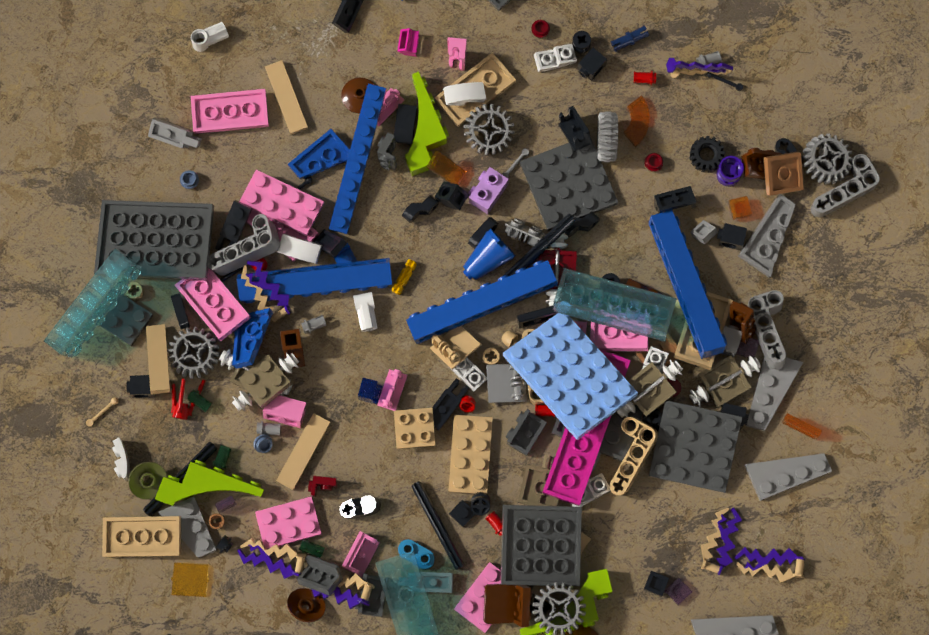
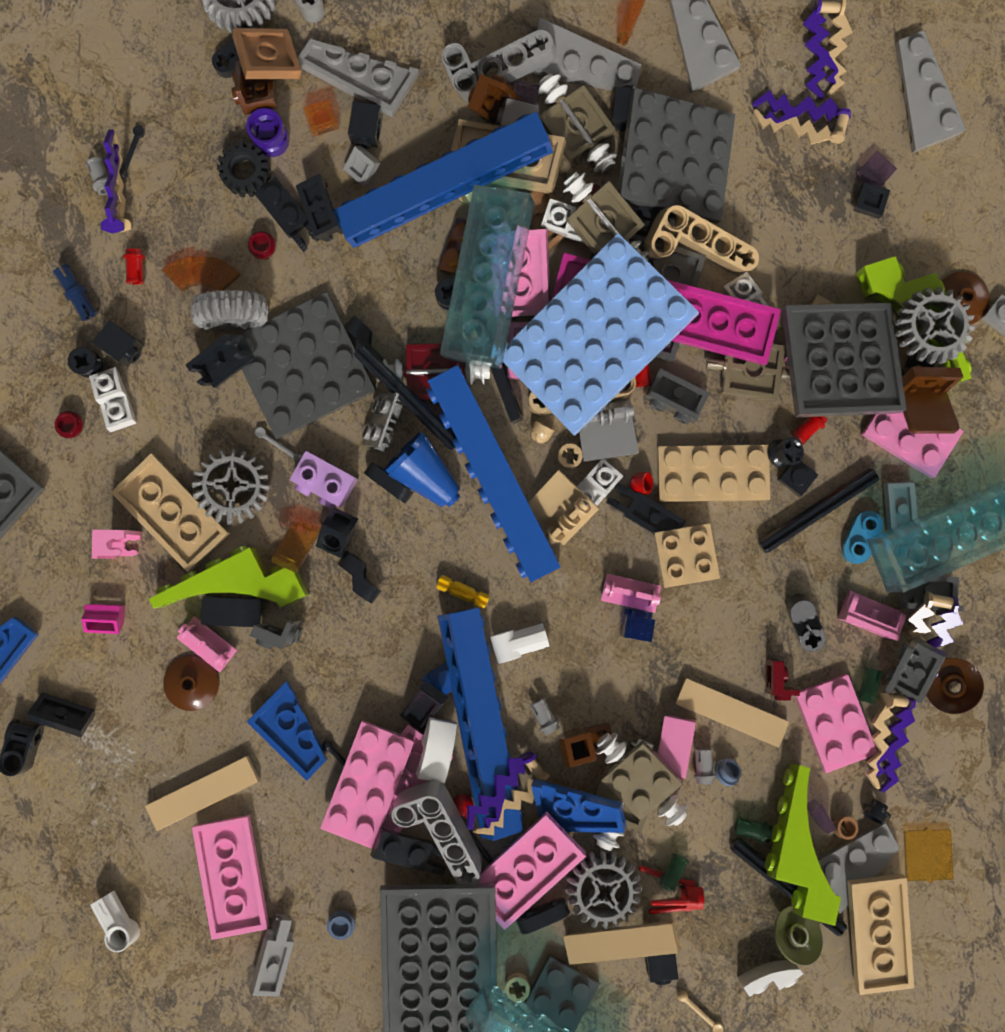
camera: 100 degrees left, 10 degrees up
(357, 159) = (289, 676): blue plate -> none
(466, 92) = (177, 526): white slope -> none
(677, 178) = (284, 211): none -> black hinge

